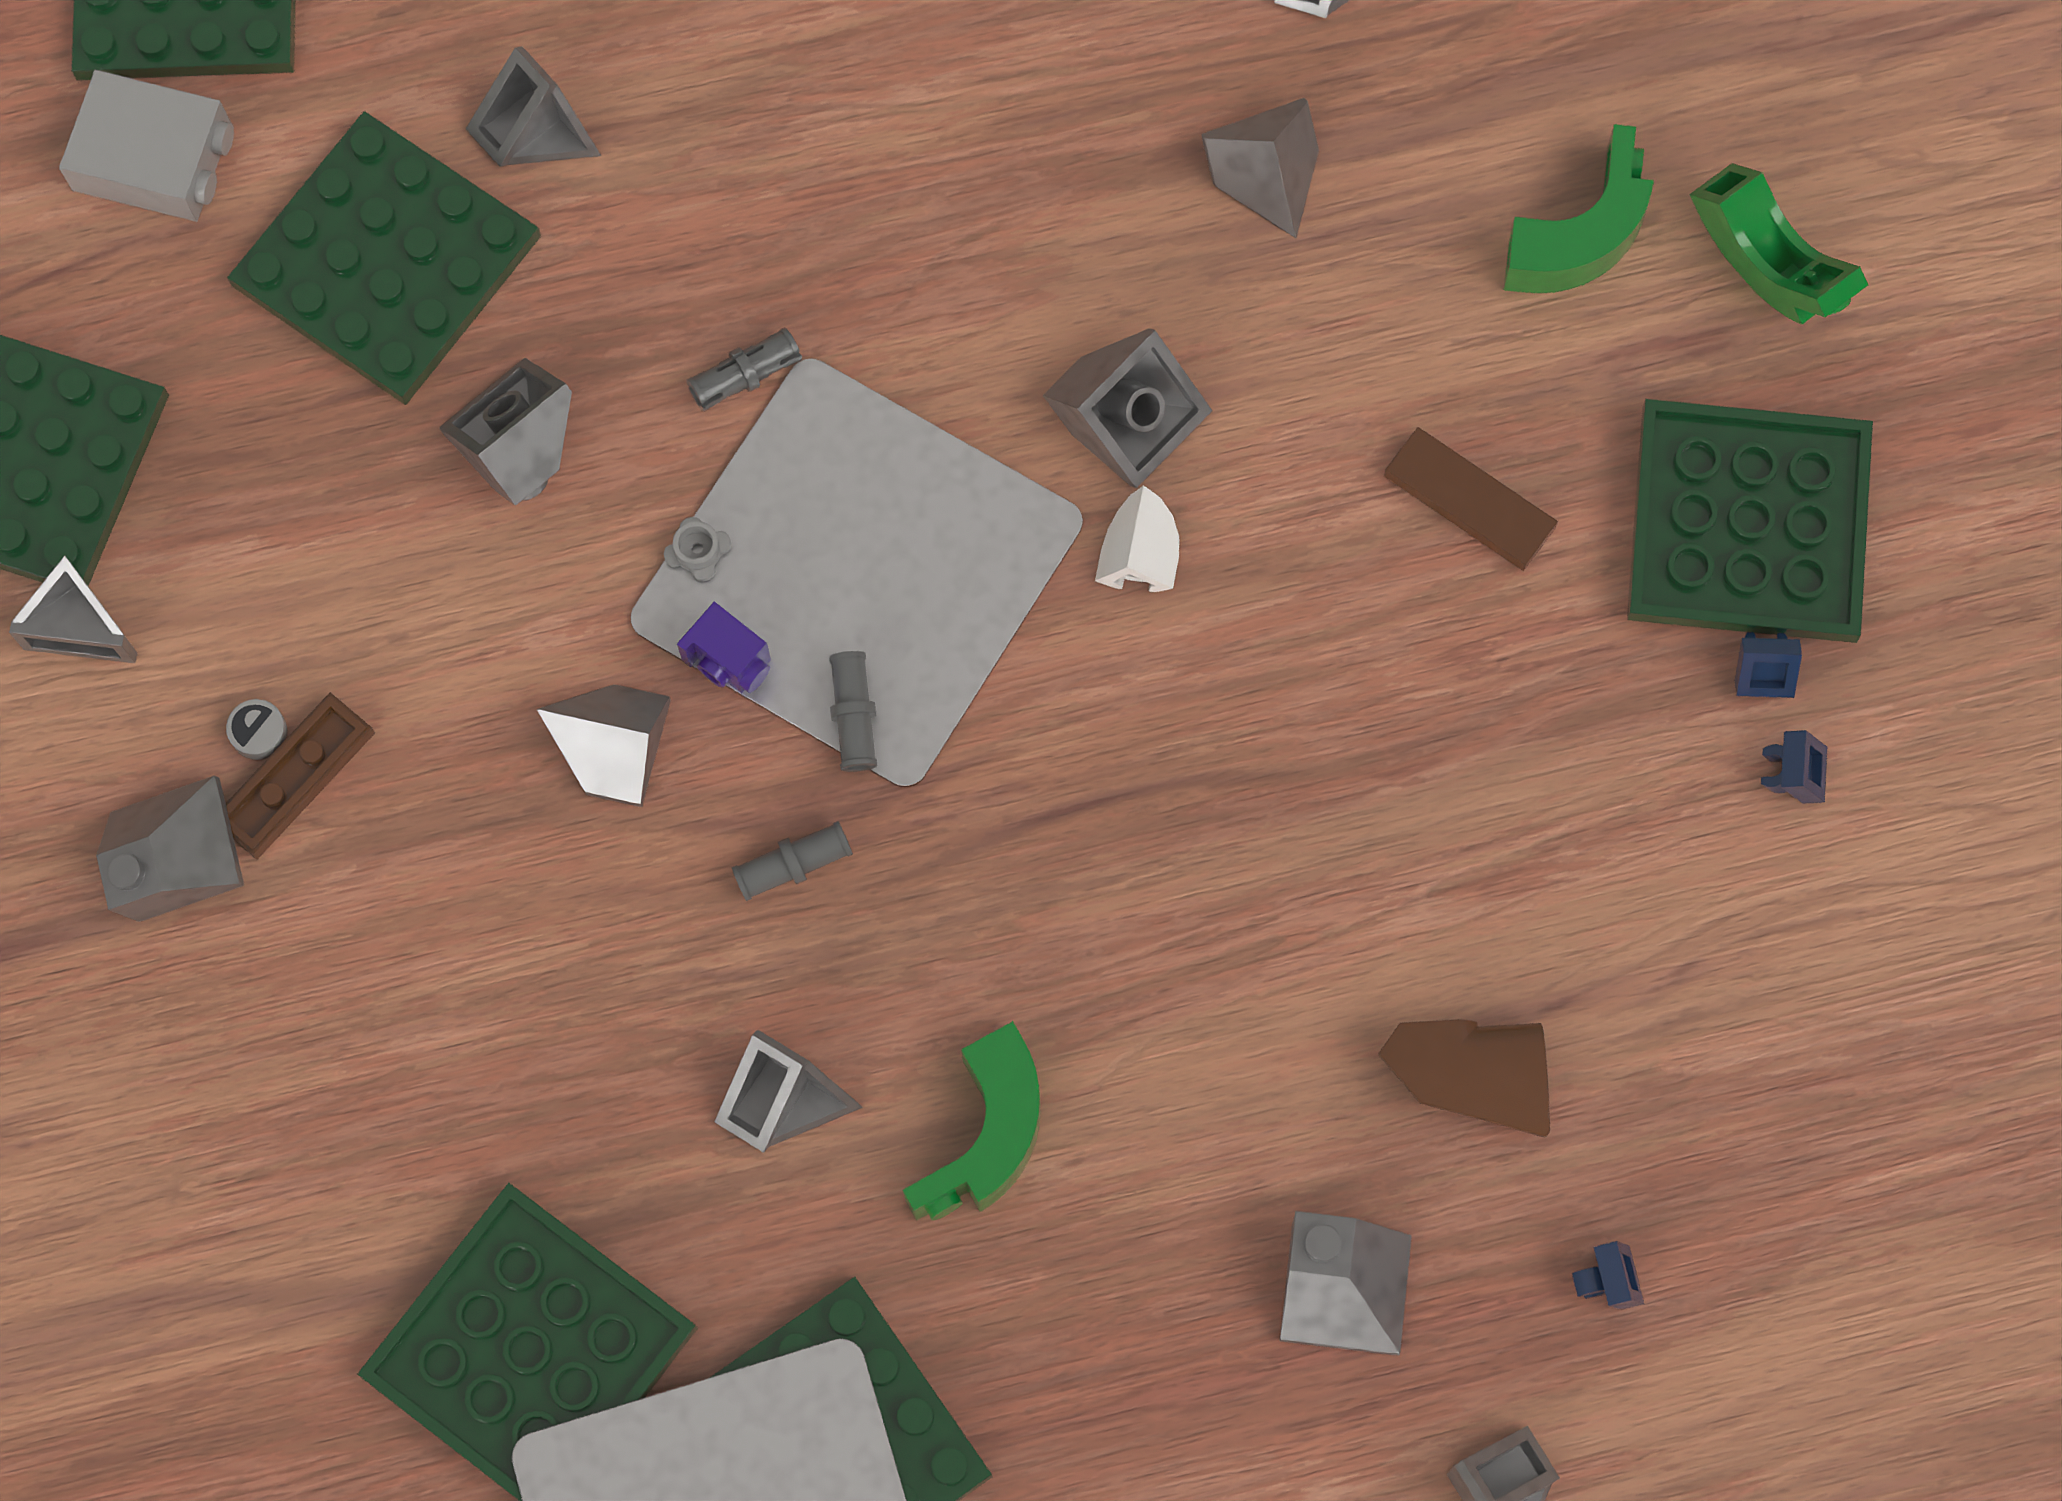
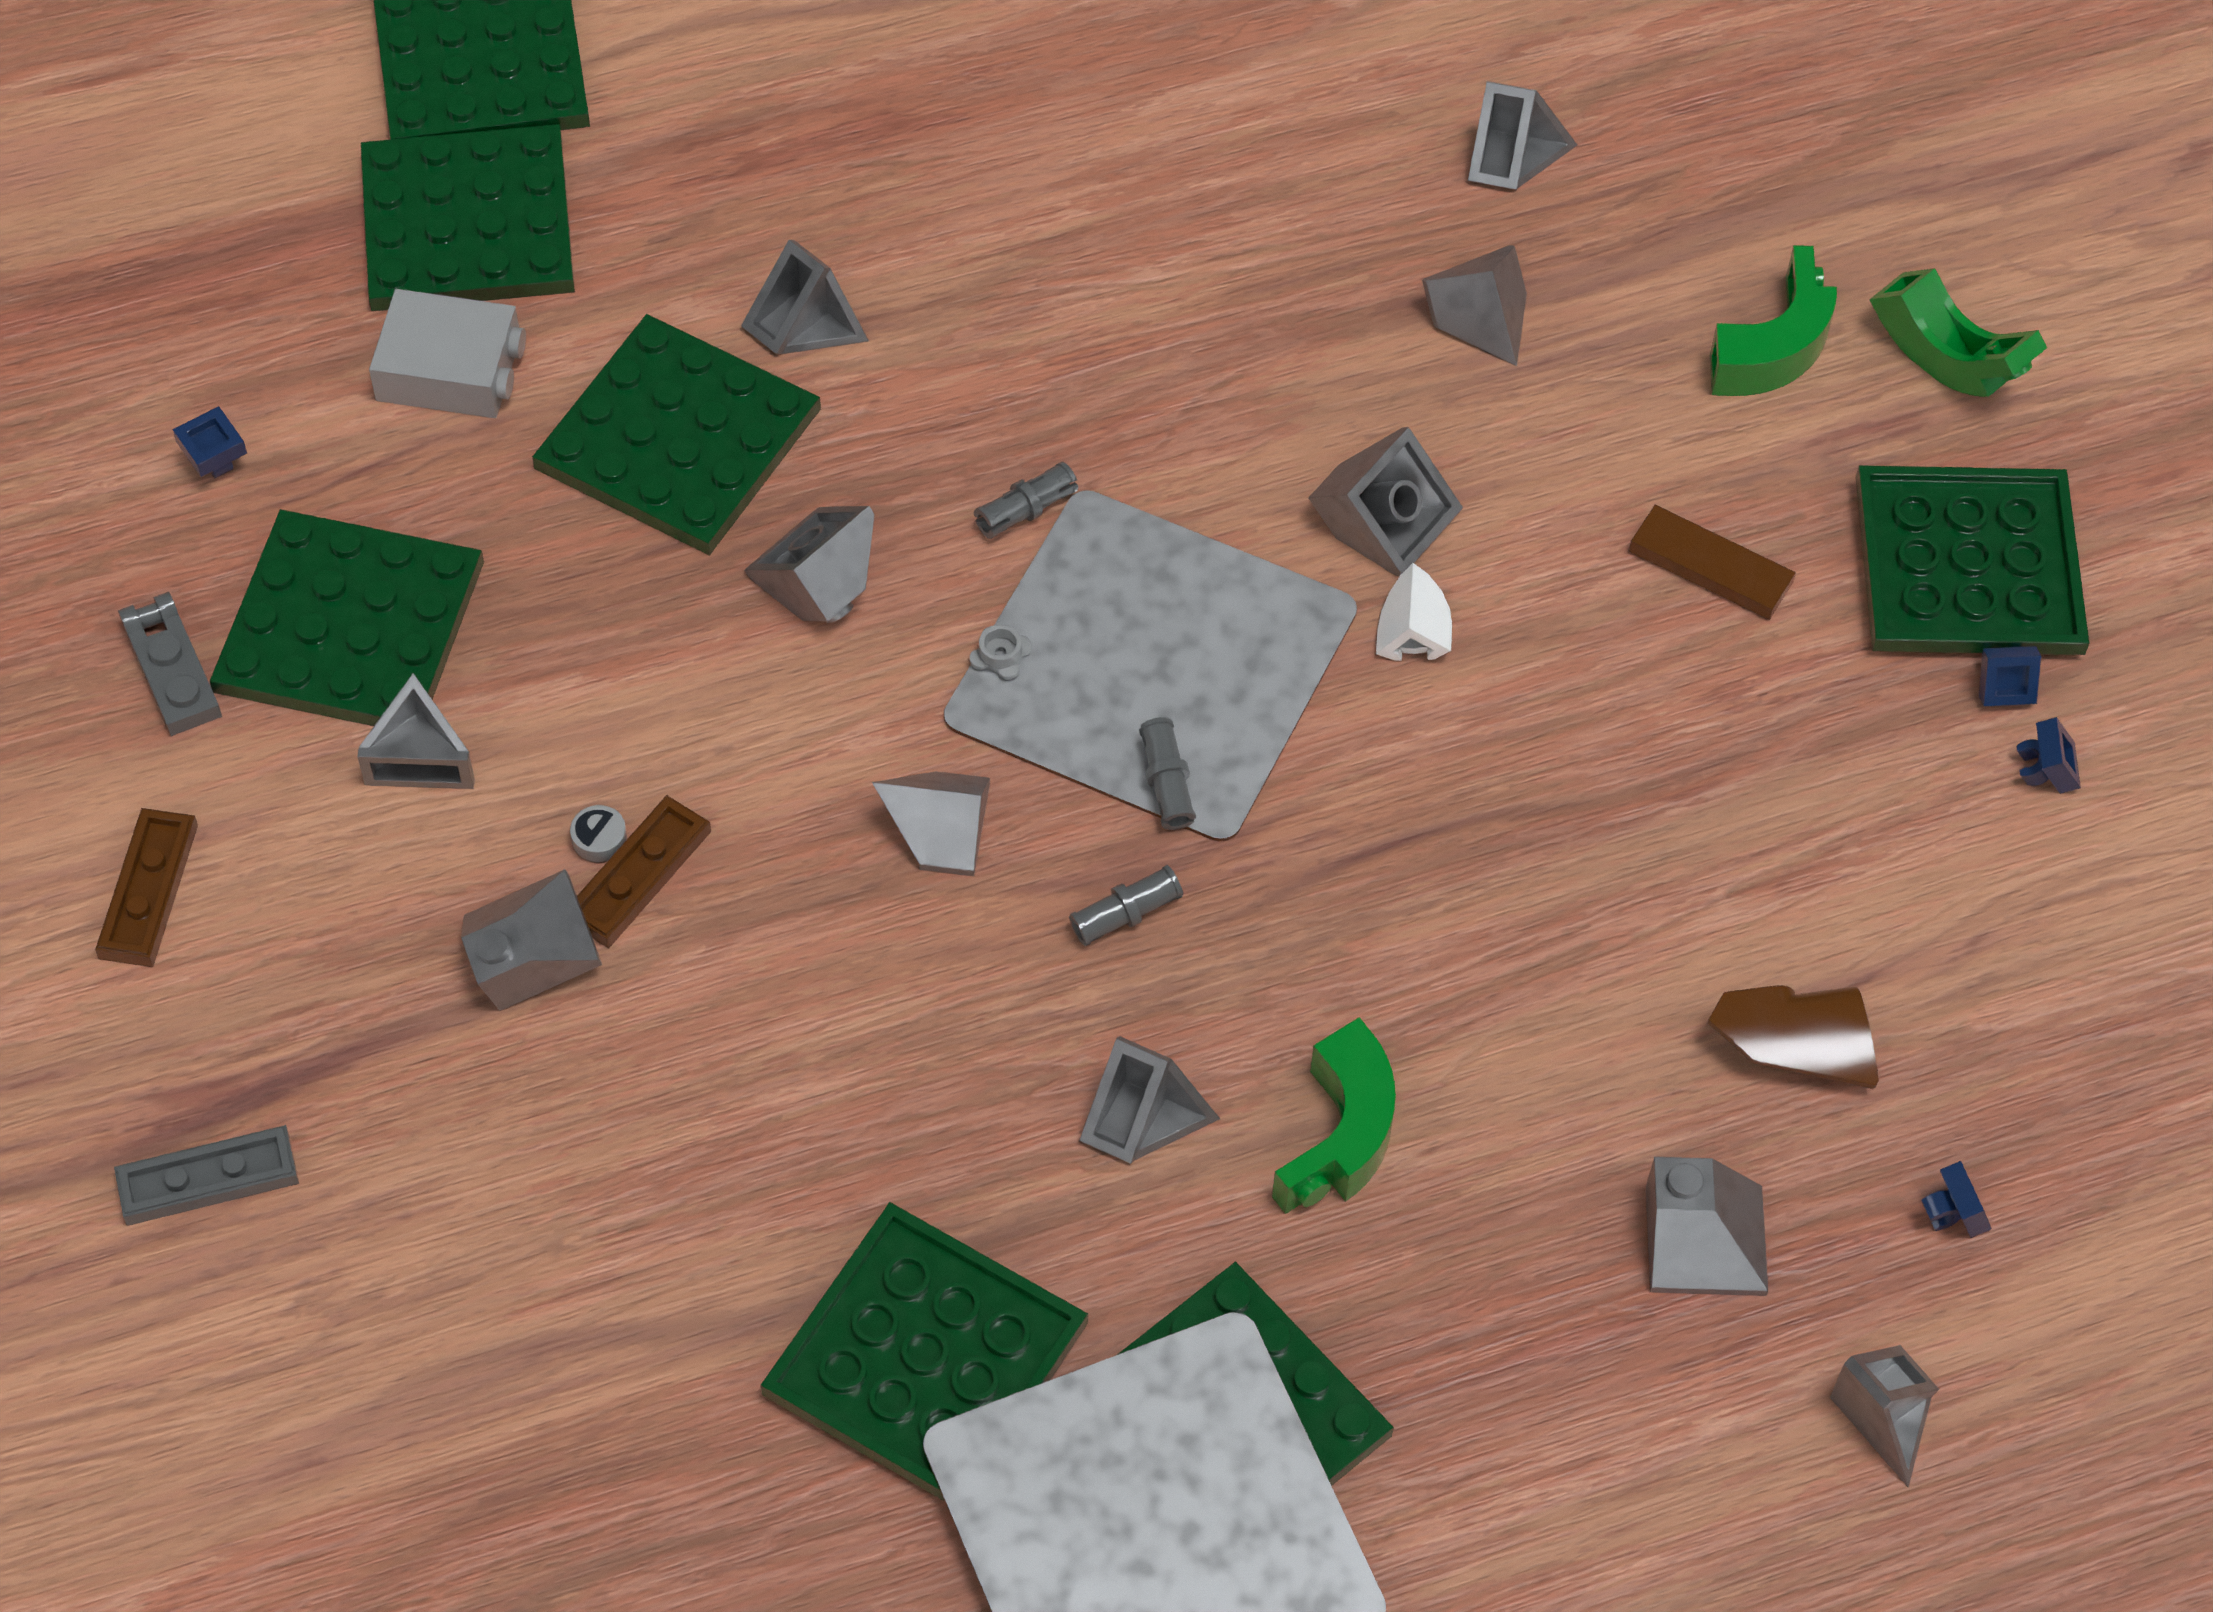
camera: 10 degrees left, 15 degrees down
(726, 650) = (1041, 728): dark purple brick -> none

